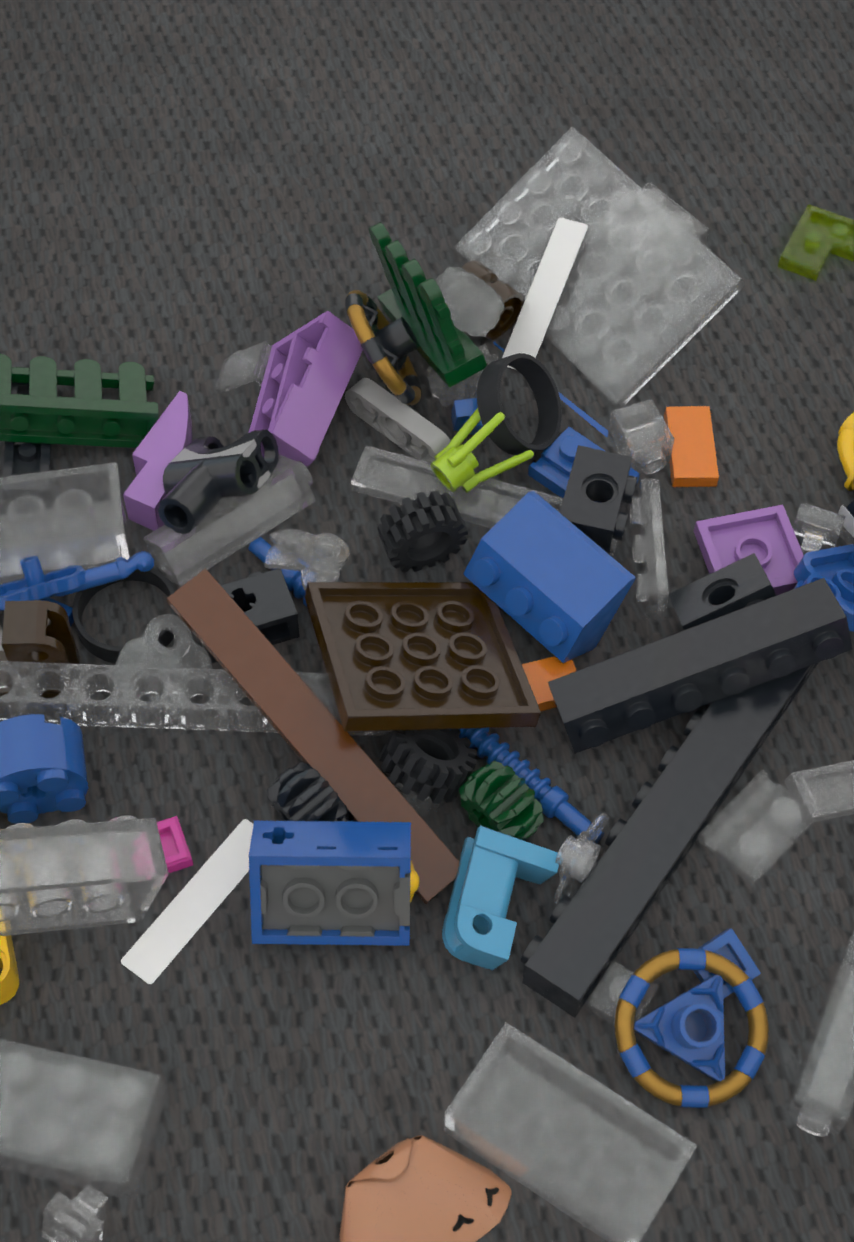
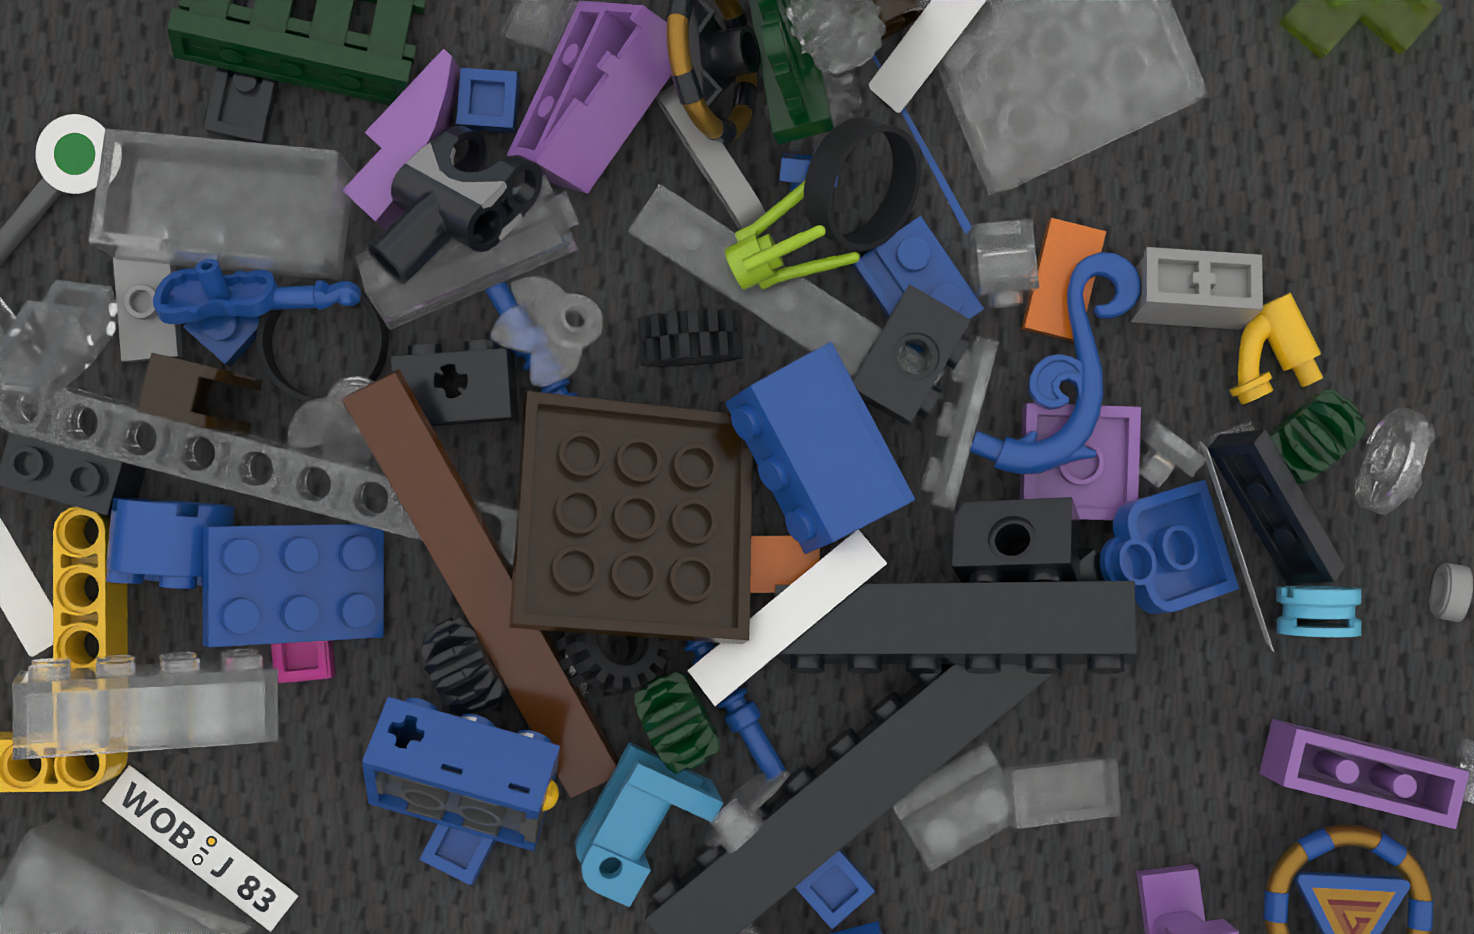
camera: 20 degrees right, 30 degrees up
(101, 1038) = (200, 848): none -> white sticker
(146, 774) = (292, 583): none -> blue plate
(191, 906) = (332, 718): white sticker -> none
(219, 421) = (488, 100): none -> blue plate
(341, 968) = (457, 853): none -> blue plate
(565, 697) = (788, 616): none -> white sticker
(678, 913) = (835, 889): none -> blue plate
(708, 493) = (1084, 372): none -> blue plant
(790, 424) = (1198, 288): none -> light grey hinge

